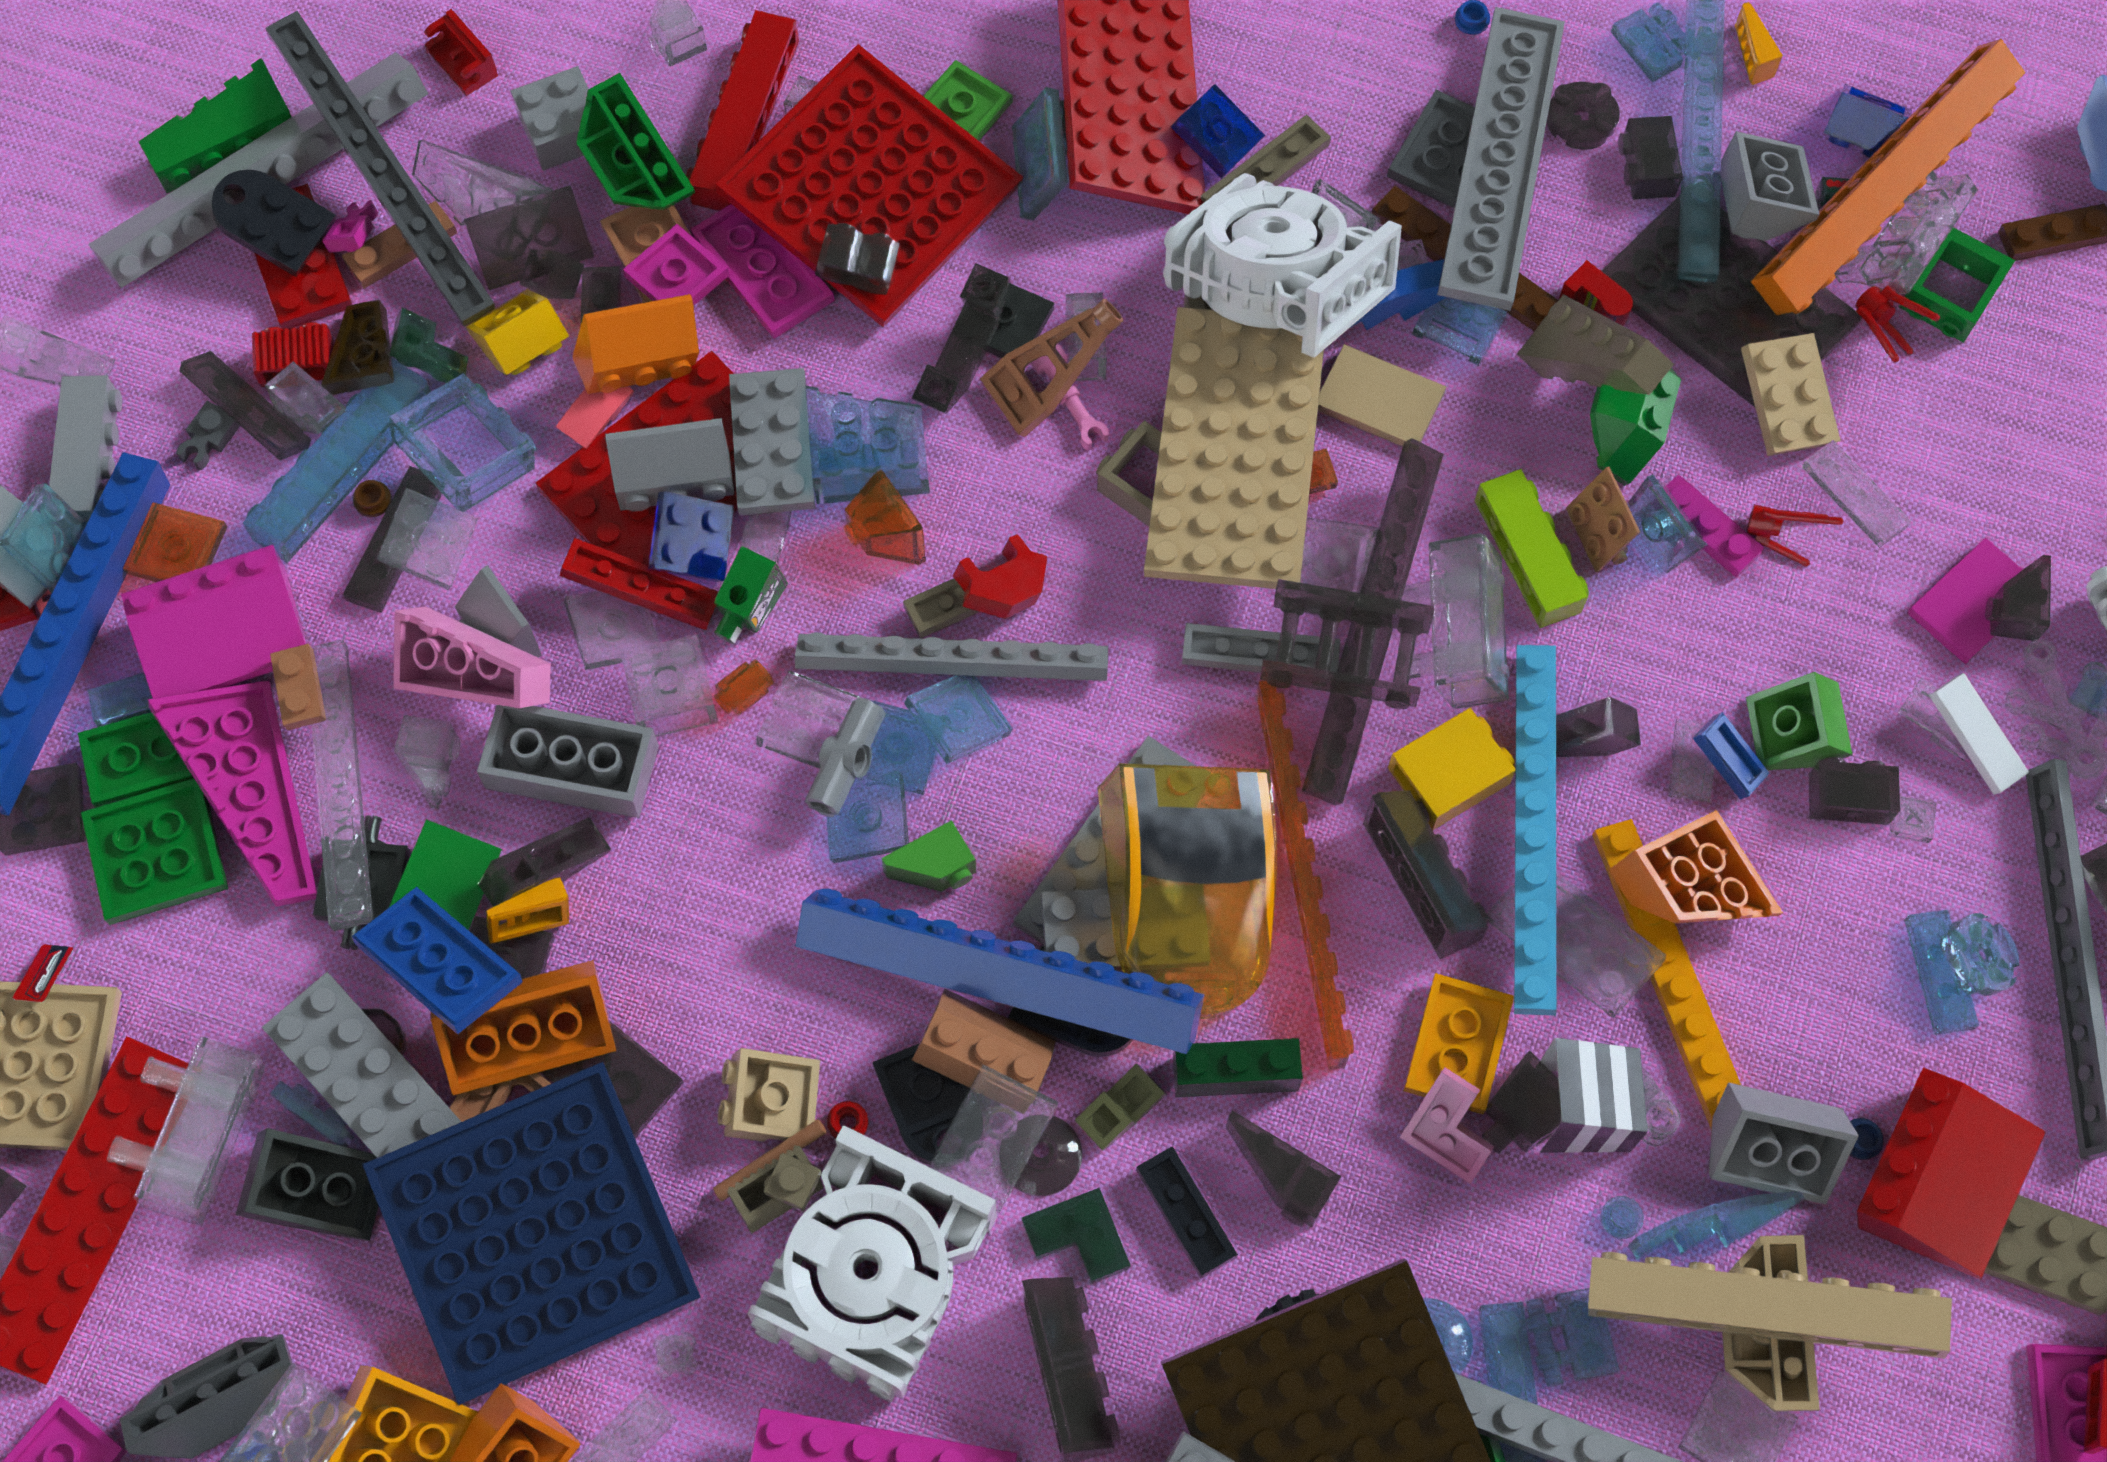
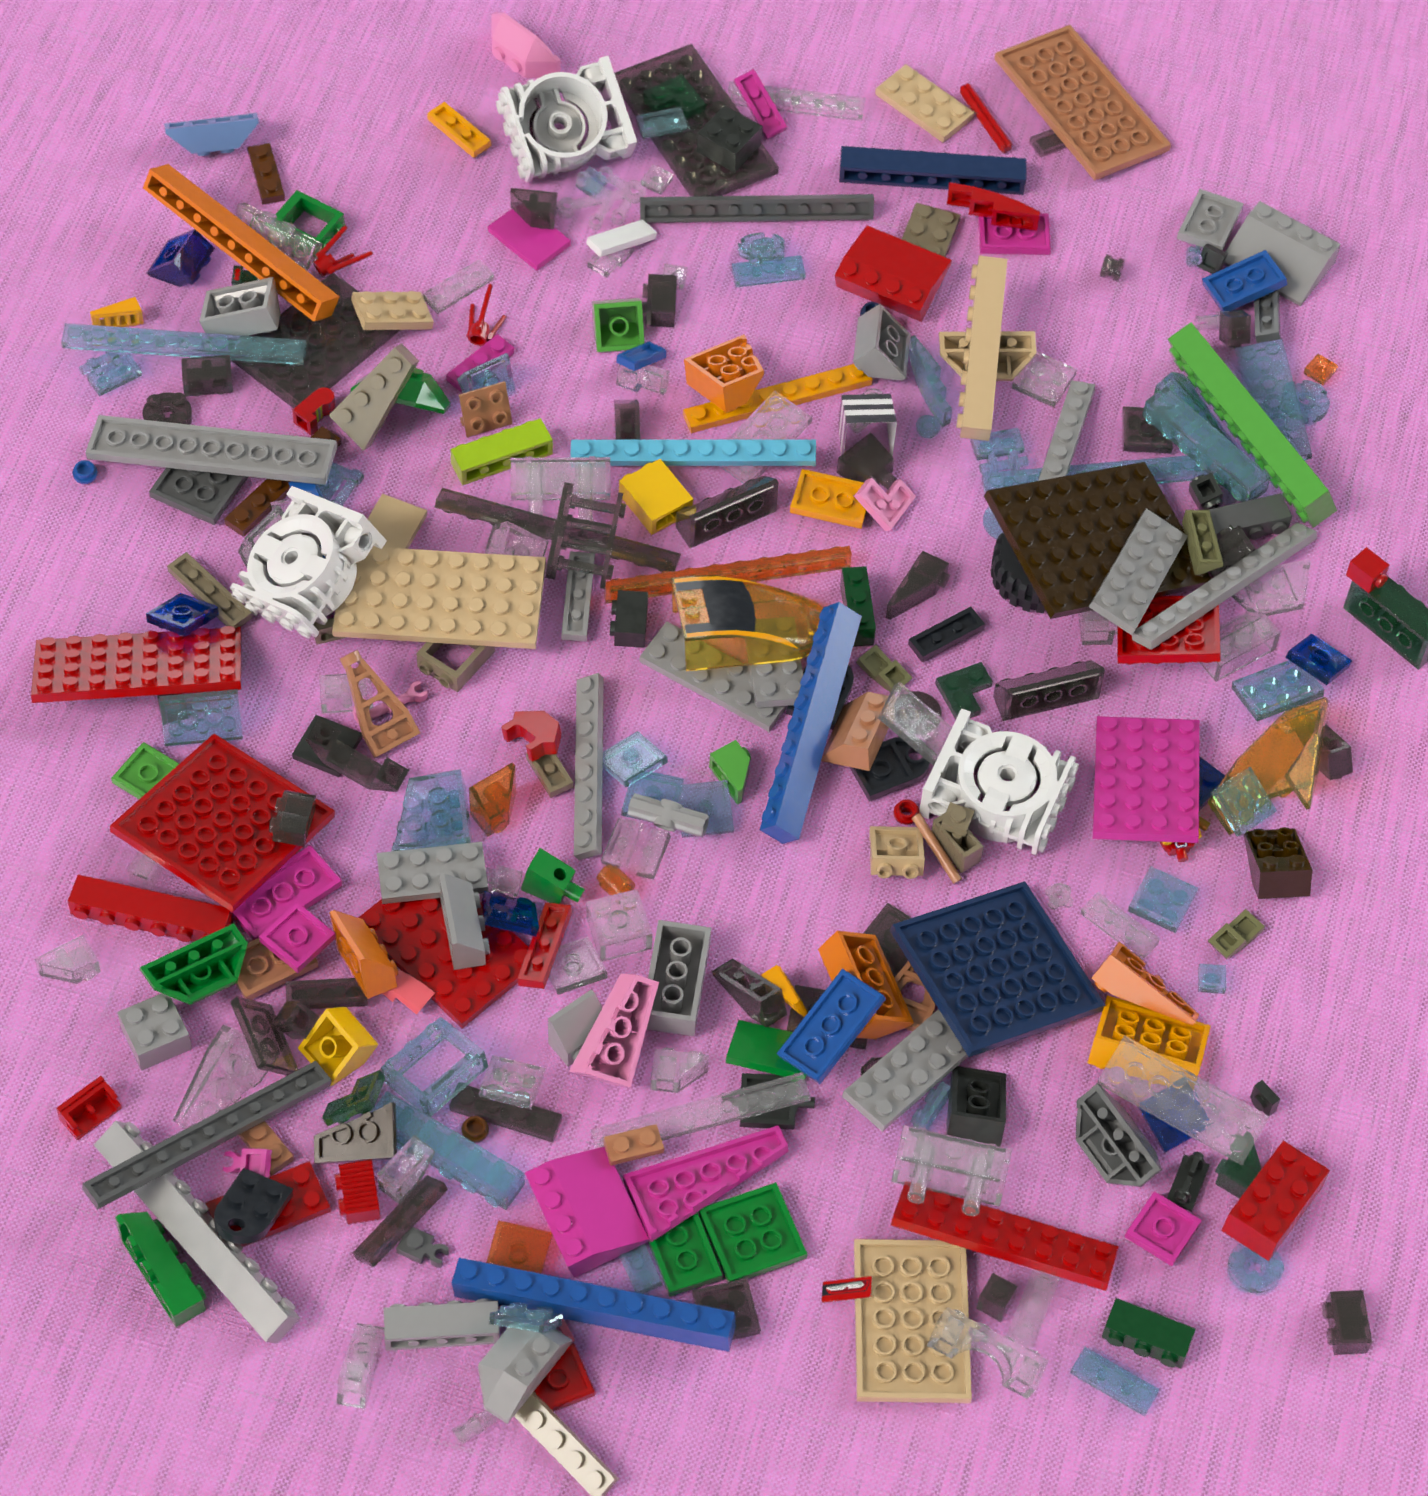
camera: 95 degrees left, 10 degrees down
(1216, 723) = (631, 618): none -> pearl dark grey brick

